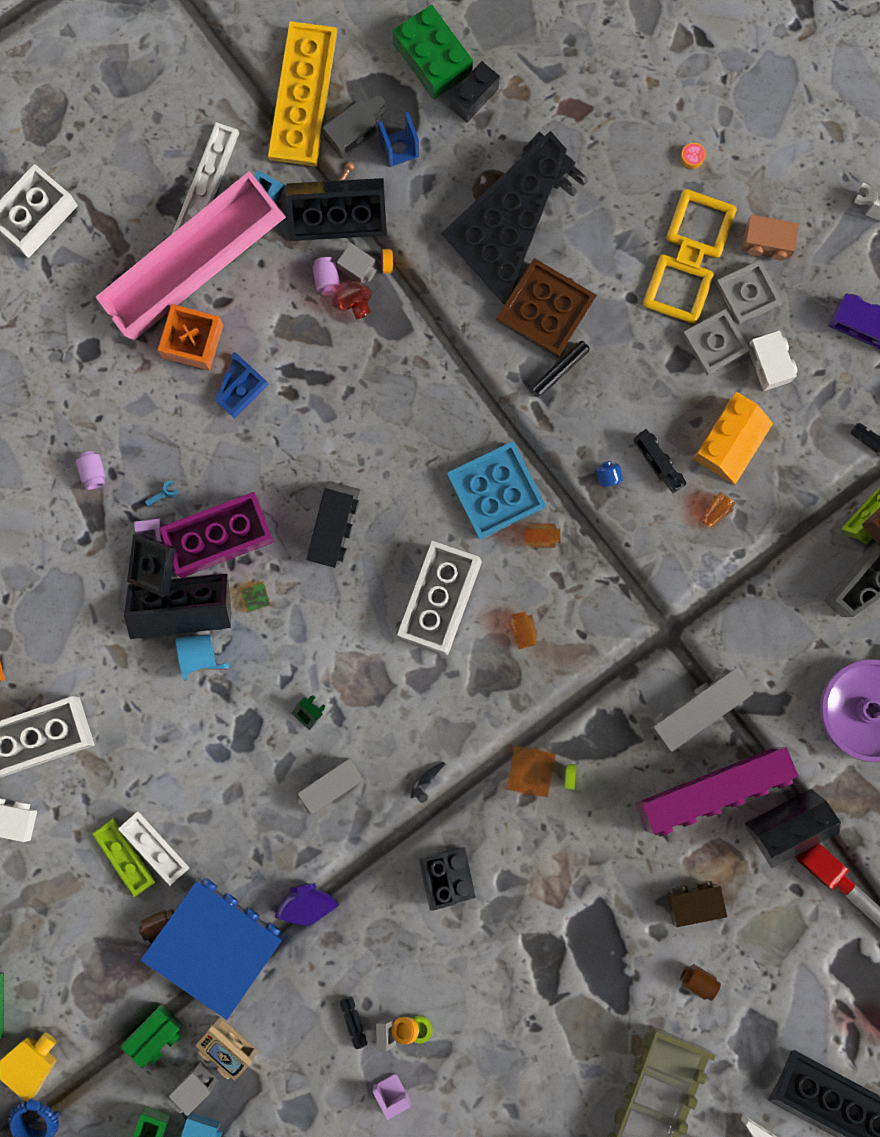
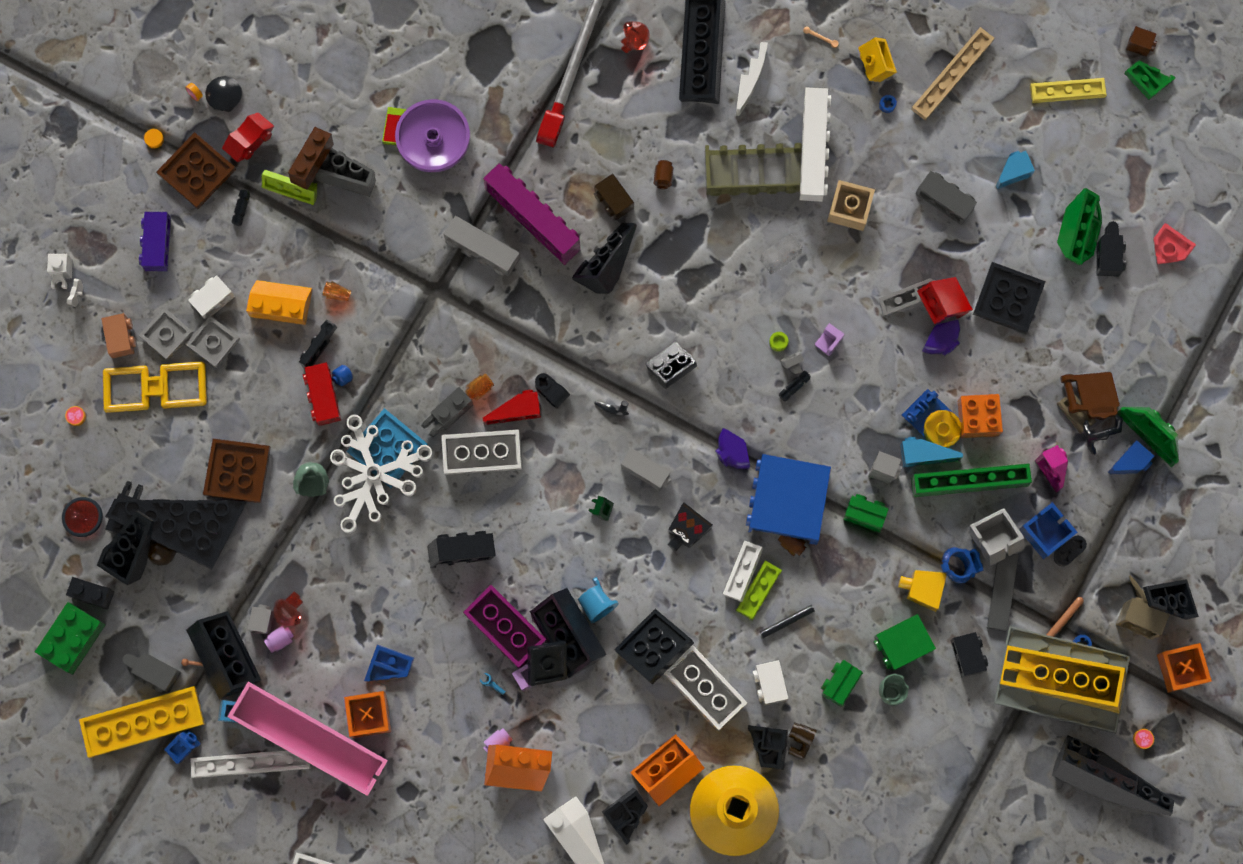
camera: 110 degrees left, 5 degrees down
(50, 479) = (517, 767): none -> orange slope
(70, 875) = (787, 621): none -> black bar
(110, 698) = (654, 646): none -> black plate
(226, 1049) = (850, 459): tan slope -> none
(236, 805) = (687, 528): none -> black torso
(255, 126) = (182, 746): none -> blue bracket
(255, 597) = (537, 583): tile -> none
(387, 261) = (248, 600): light orange tile -> none
(405, 1030) = (783, 349): light orange tile -> none
(407, 136) = (144, 626): blue piece -> none
(450, 438) = (363, 494): none -> white plant
(476, 668) = (519, 408): none -> red slope
(476, 717) = (553, 392): none -> black piece
(496, 385) = (310, 480): none -> sand green hair
(499, 144) = (129, 550): none -> black wedge
(508, 580) = (448, 411): none -> dark grey hinge
(530, 771) = (574, 342): clear orange piece -> none
(541, 535) = (406, 402): clear orange brick -> none
(560, 369) = (278, 442): black axle -> none
(569, 117) = (82, 517): none -> clear red wheel
(570, 776) = (566, 313): lime tile -> none
(596, 441) = (321, 394): none -> red brick
(609, 852) = (605, 267): none -> black wedge
(793, 827) = (534, 155): black slope -> none
(850, 213) = (75, 291): none -> white piece

